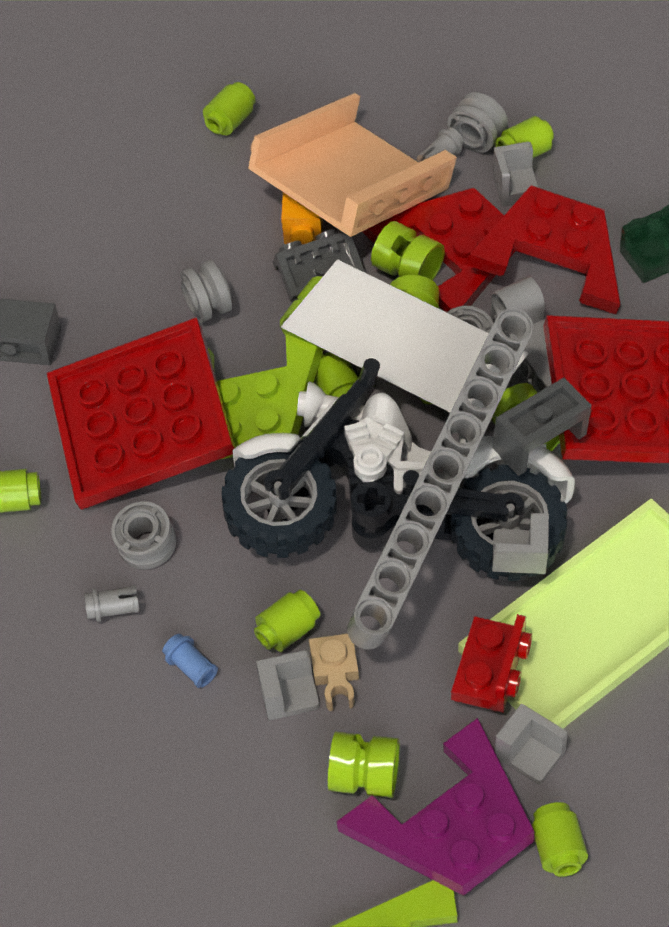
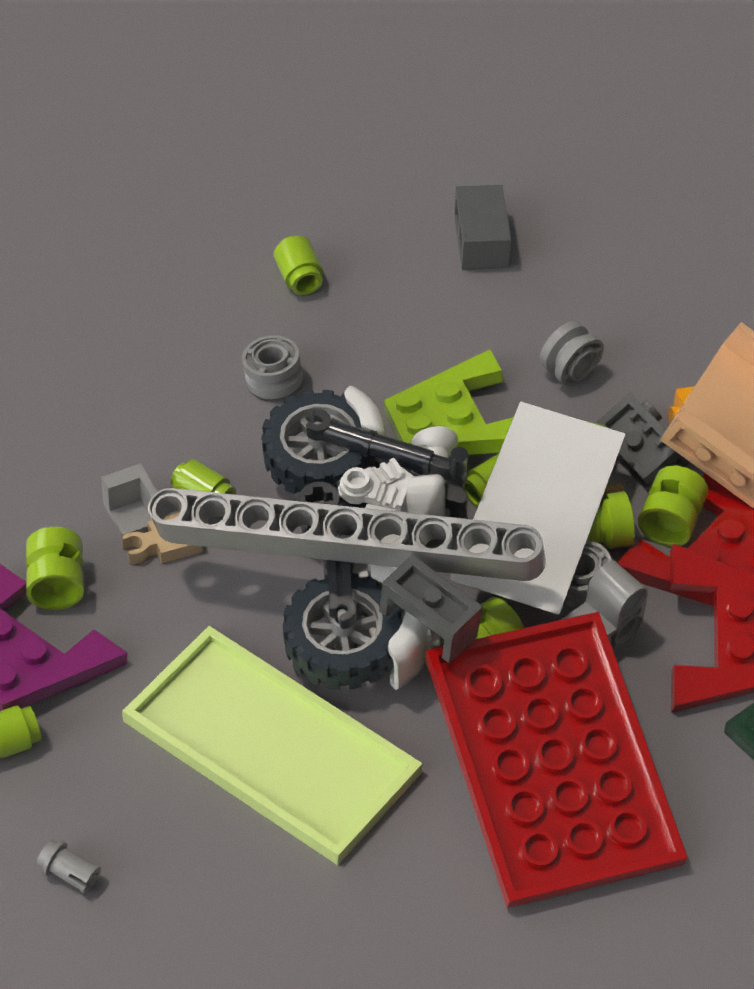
camera: 70 degrees right, 5 degrees down
(111, 602) = (193, 354): light grey pin -> none
(139, 413) = (407, 332): red plate -> none
(182, 653) = (154, 421): medium blue pin -> none
(490, 663) = (184, 648): red bracket -> none
(522, 549) = (297, 632): light grey panel -> none
(530, 744) = (108, 693): light grey panel -> none

